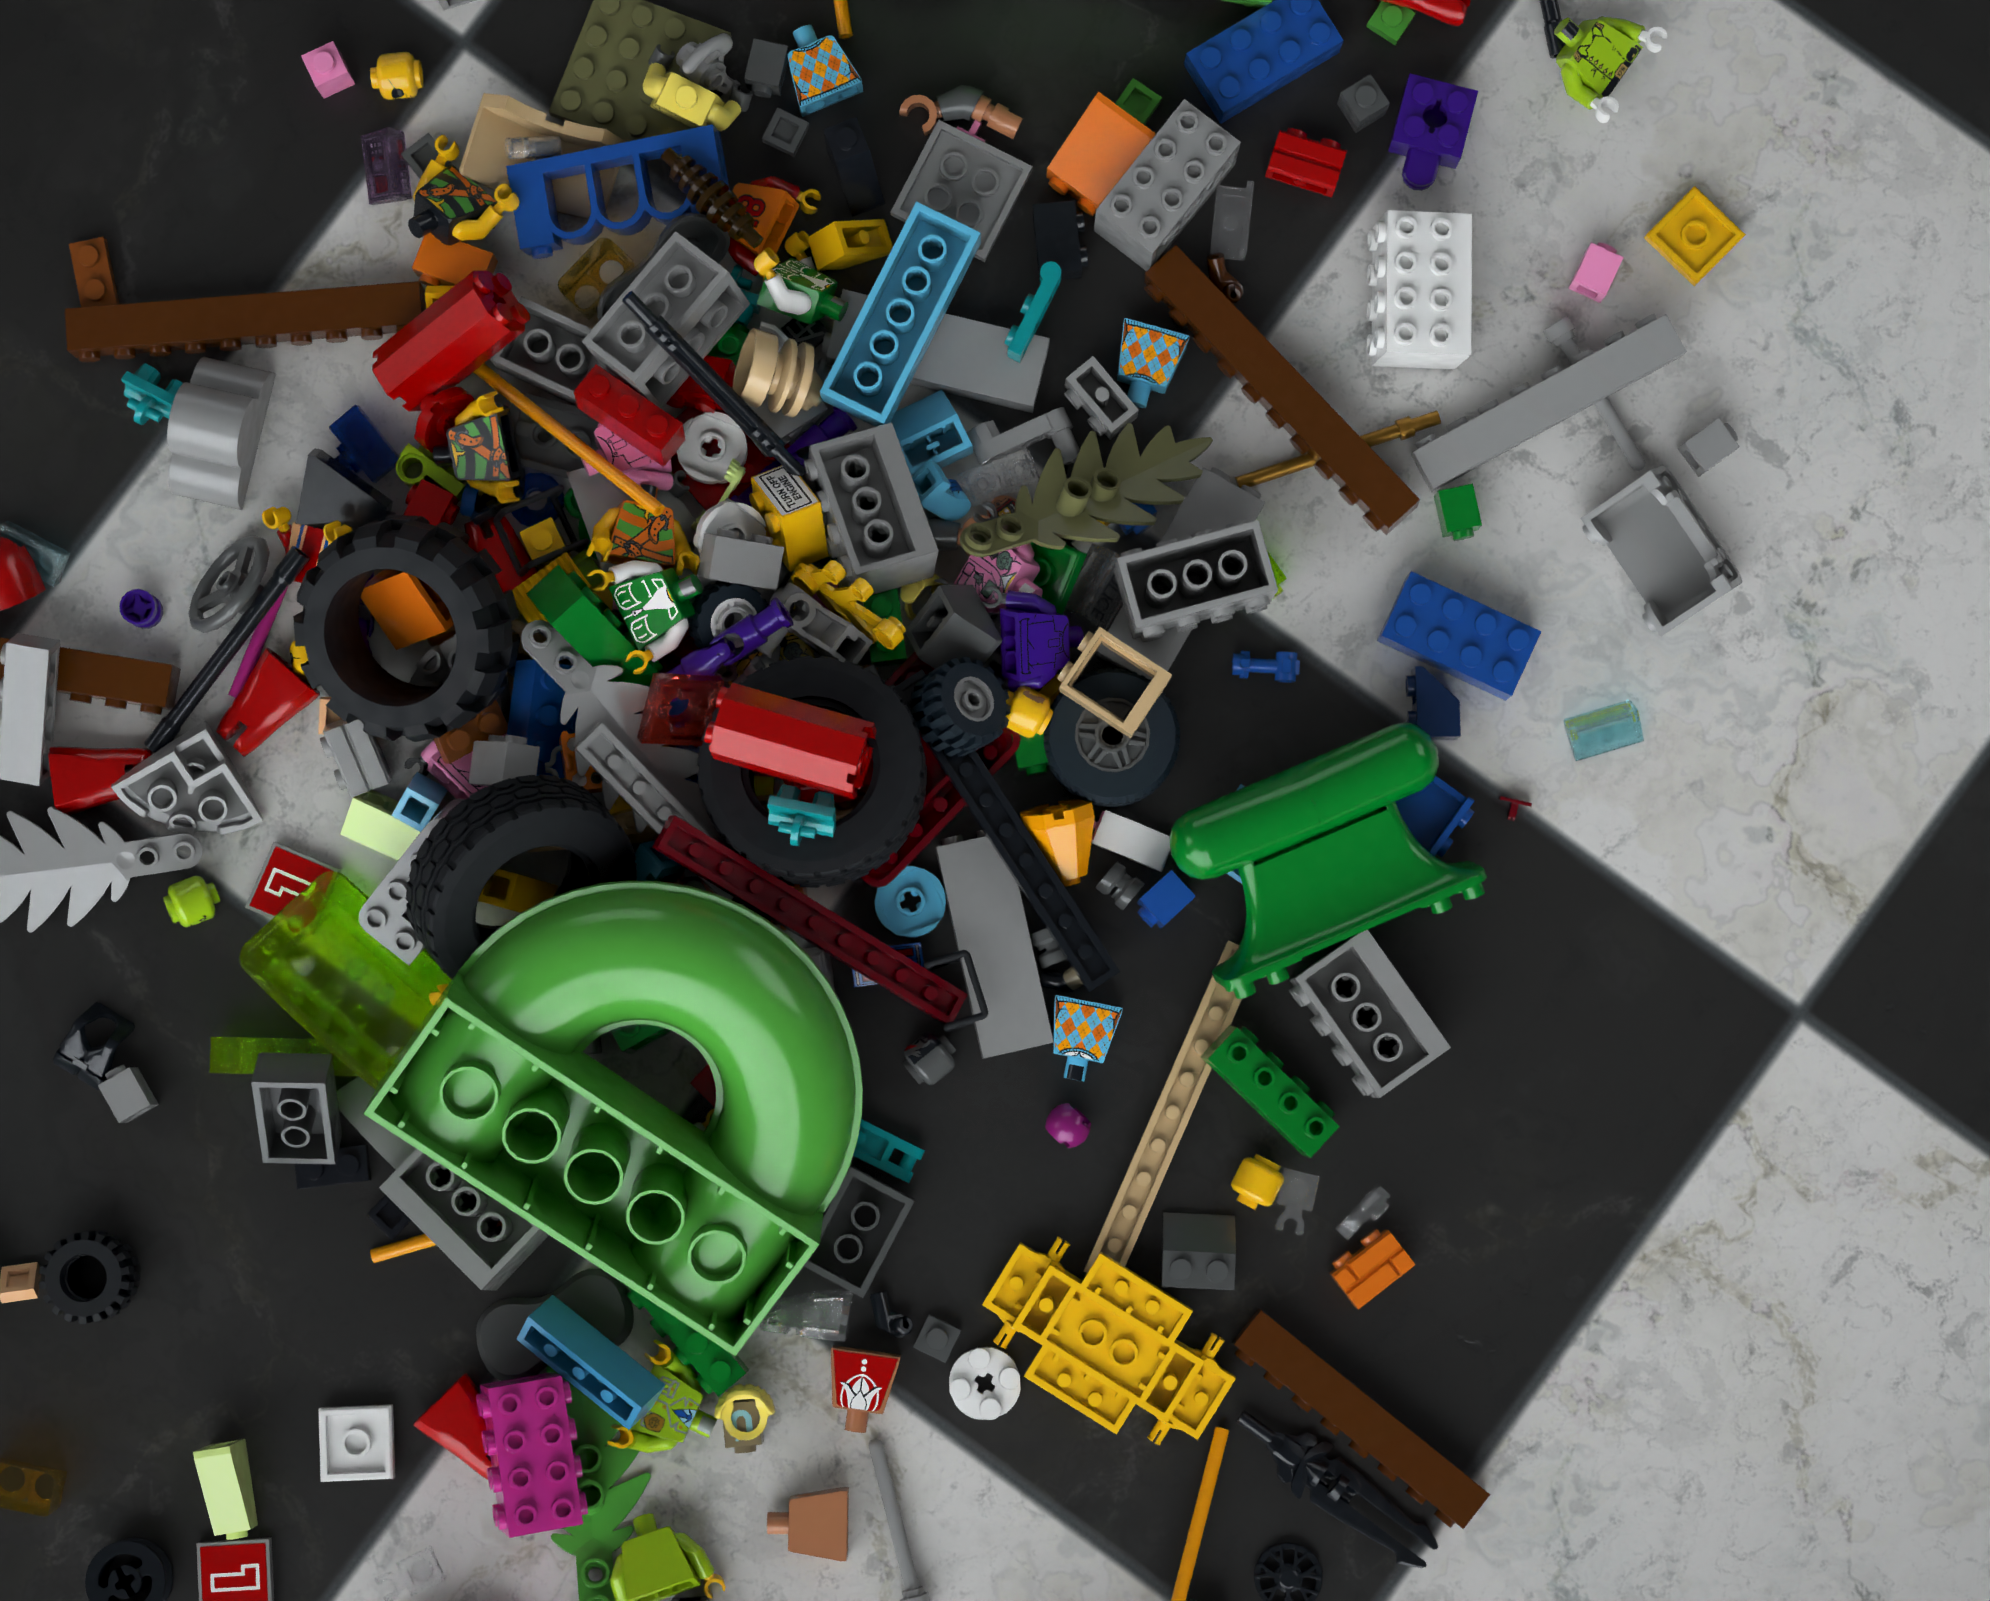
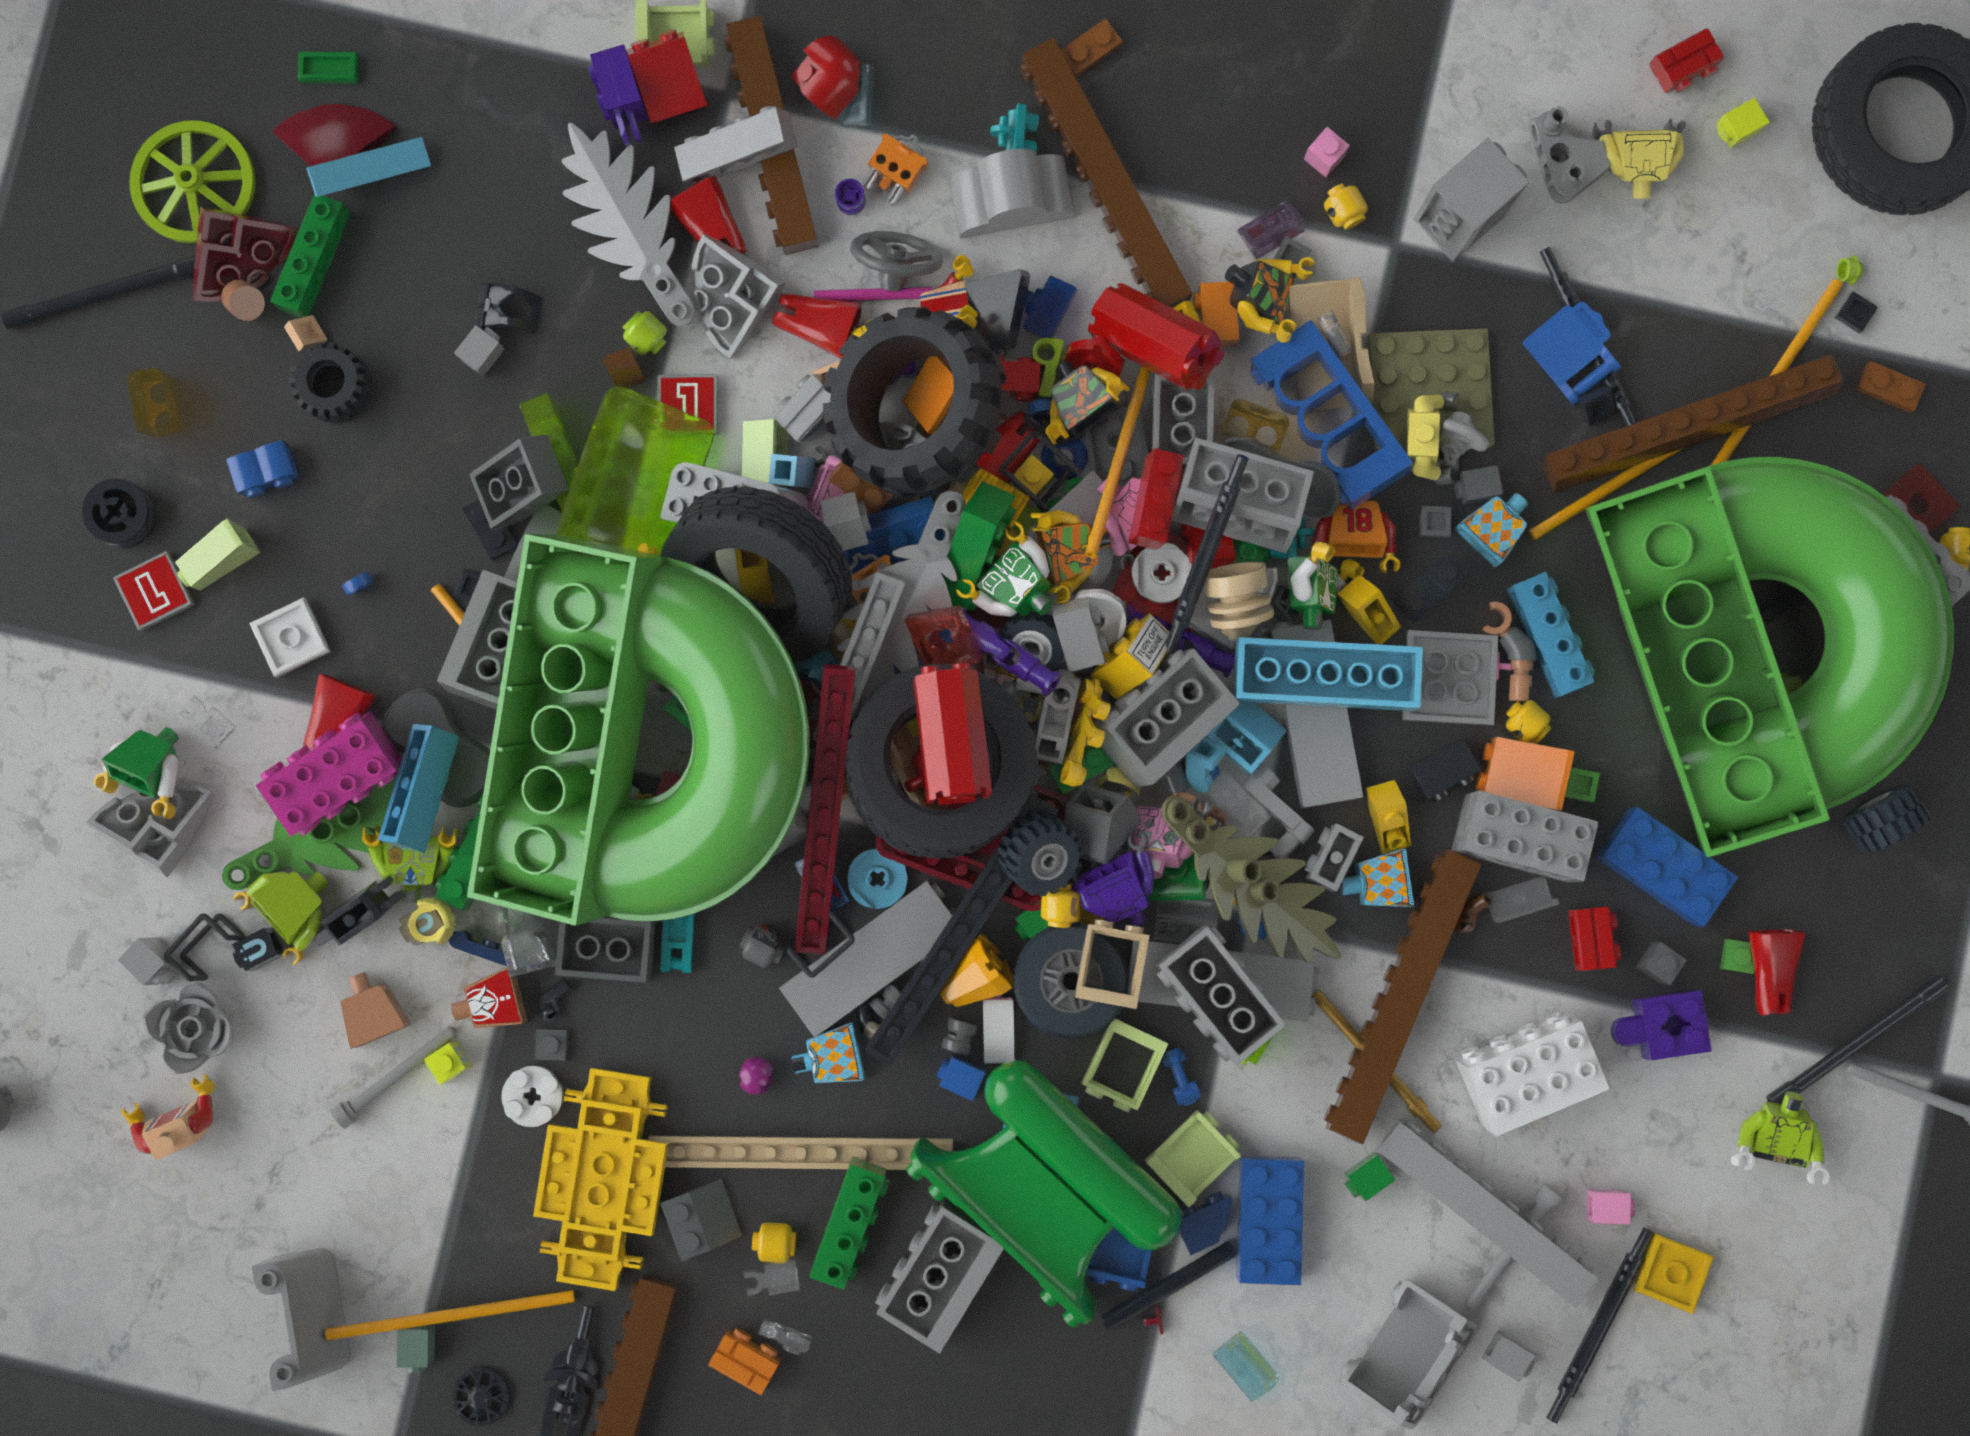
camera: 70 degrees right, 0 degrees up
(123, 532) = (896, 156): none -> orange piece
(152, 1394) = (263, 468): none -> blue brick
(221, 941) = (624, 368): none -> reddish brown brick
(282, 577) = (918, 291): black piece -> none
(330, 1341) = (357, 584): none -> blue tile
(699, 1491) = (357, 912): none -> black hinge
(712, 197) = (1354, 488): dark brown piece -> none
(734, 475) = (1145, 599): yellowish green piece -> none
(801, 817) = (894, 768): teal hips -> none
(801, 1365) = (486, 949): none -> dark blue plate
(908, 1460) = (448, 1062): none -> neon yellow brick
(953, 62) = (1548, 627): none -> dark azure brick
(1034, 310) = (1378, 776): teal plate -> none
(1044, 129) = (1528, 721): none -> yellow head
(1083, 321) = (1389, 816): none -> yellow slope
(1205, 689) = (1120, 1100): none -> yellowish green window
(1356, 688) = (1193, 1156): none -> yellowish green panel
(1483, 775) = (1168, 1286): none -> black axle
(1716, 337) = (1600, 1325): none -> black axle

